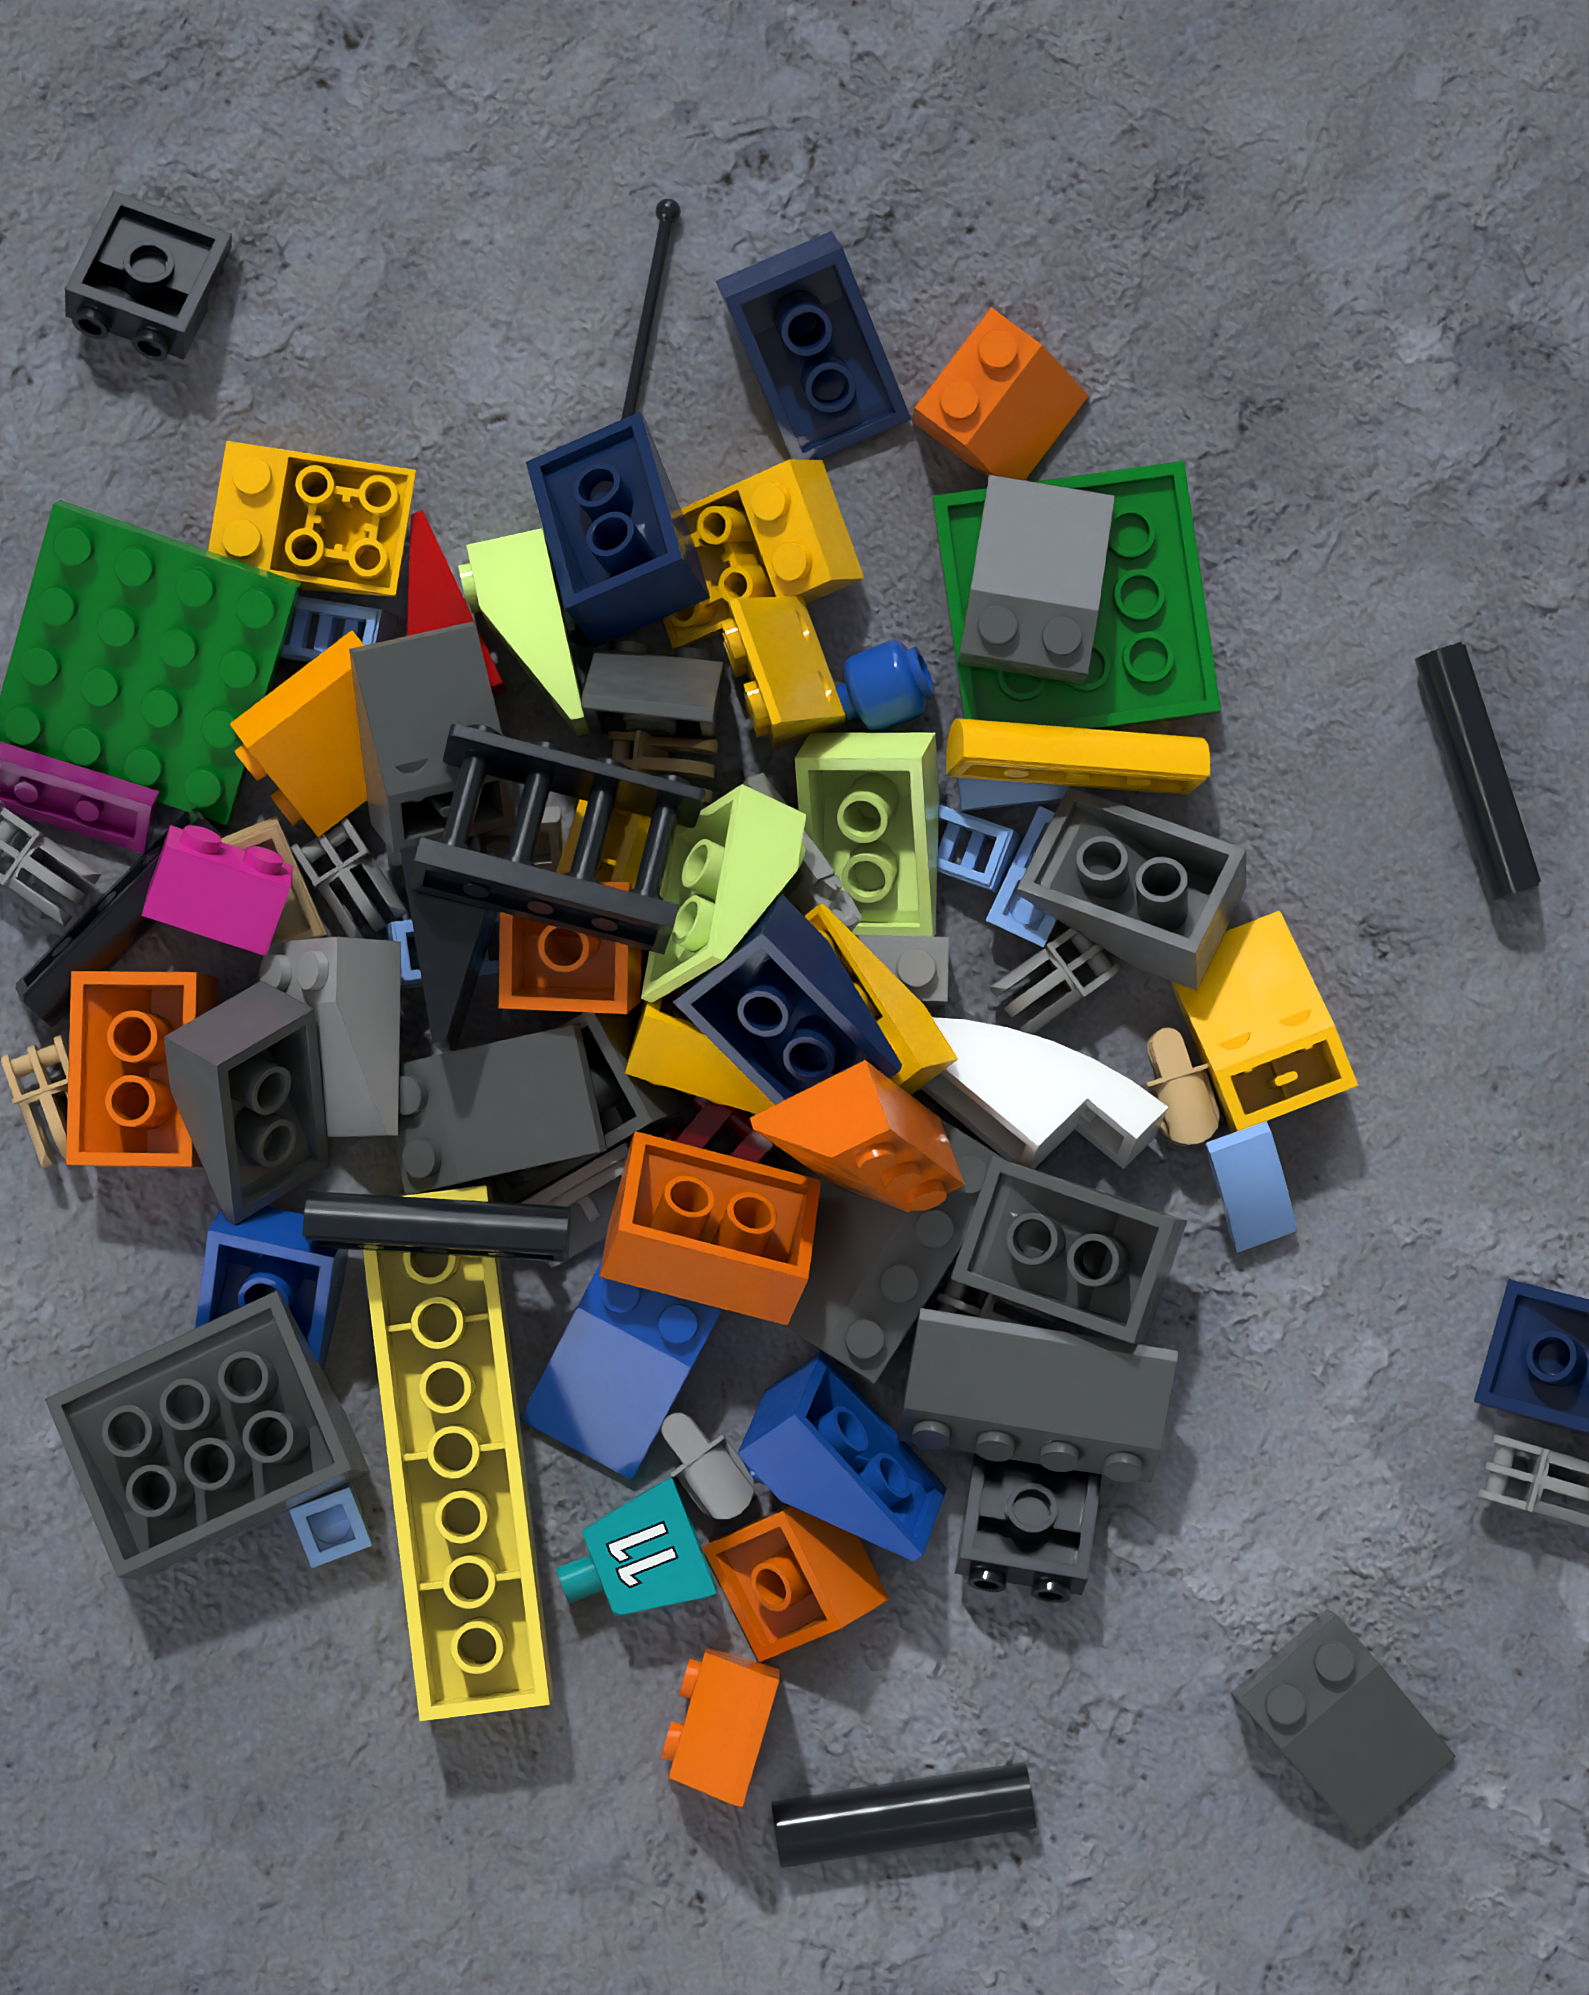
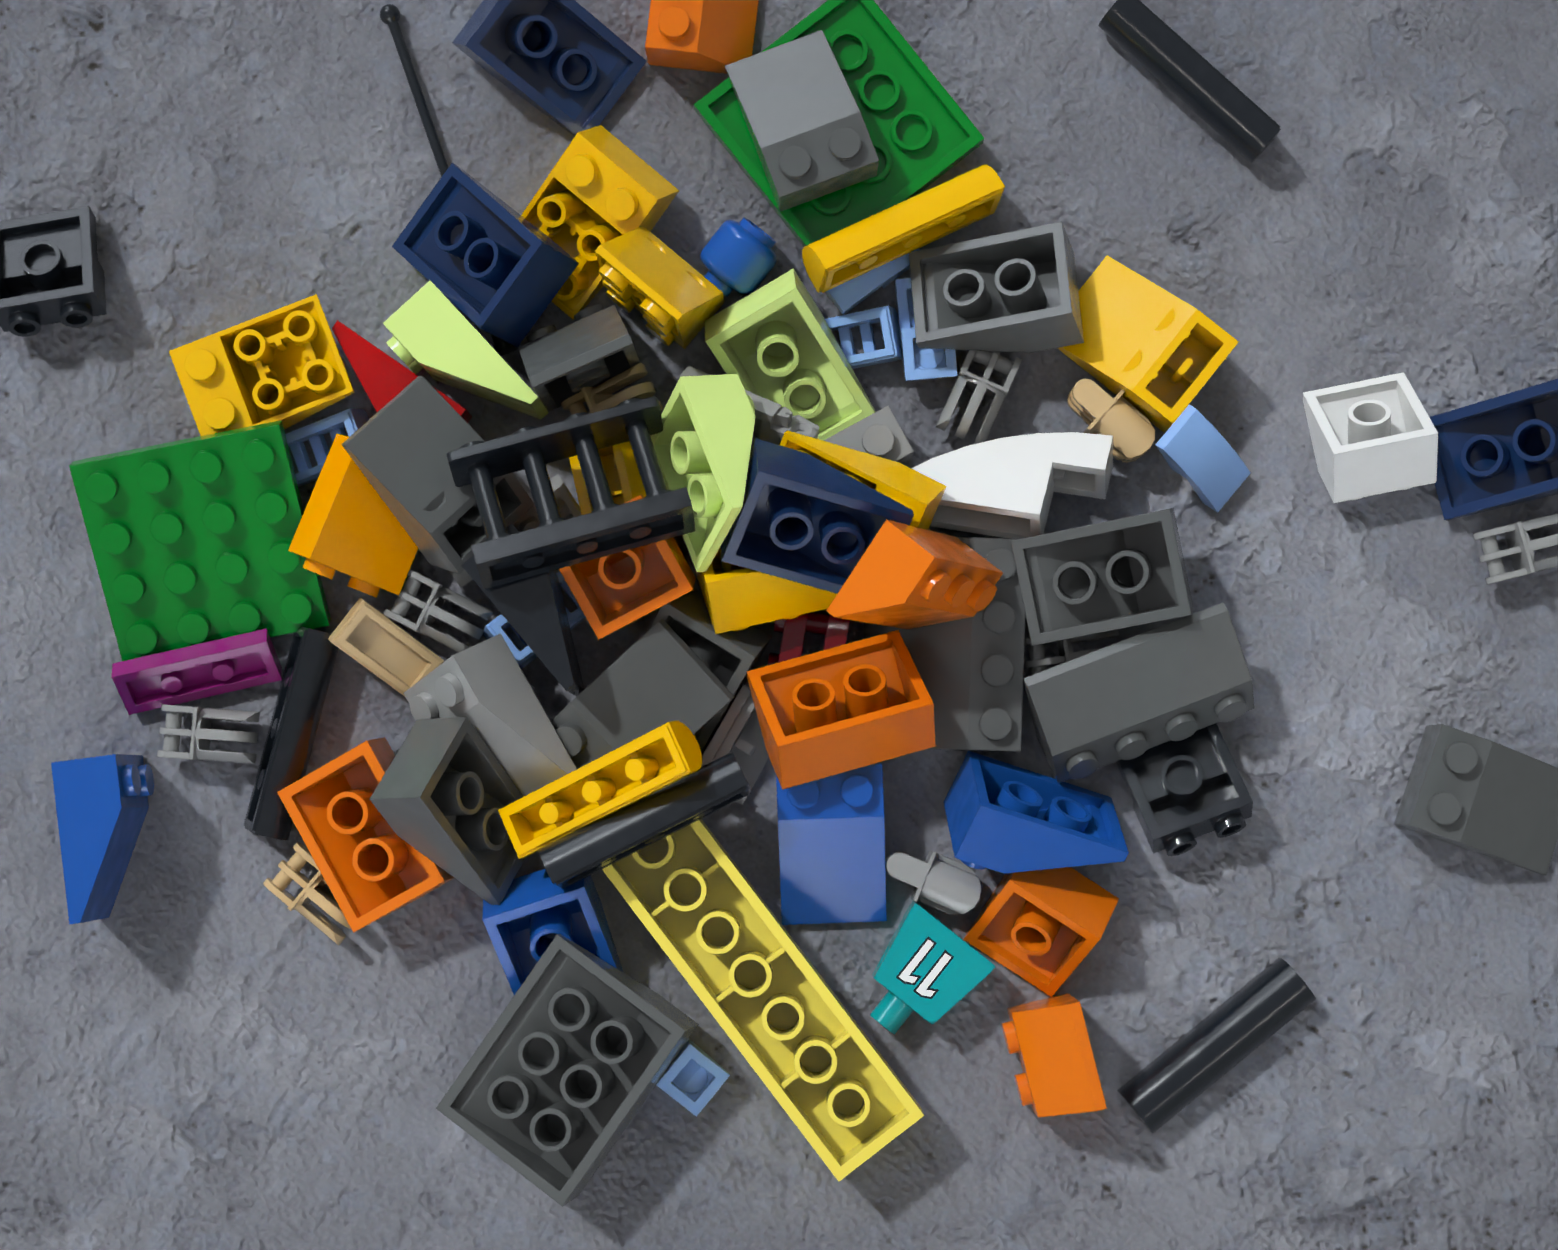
camera: 25 degrees left, 0 degrees up
(218, 888) = (348, 671): dark pink brick -> none
(411, 1165) = (602, 787): none -> yellow brick
(1445, 1267) = (1371, 437): none -> white slope

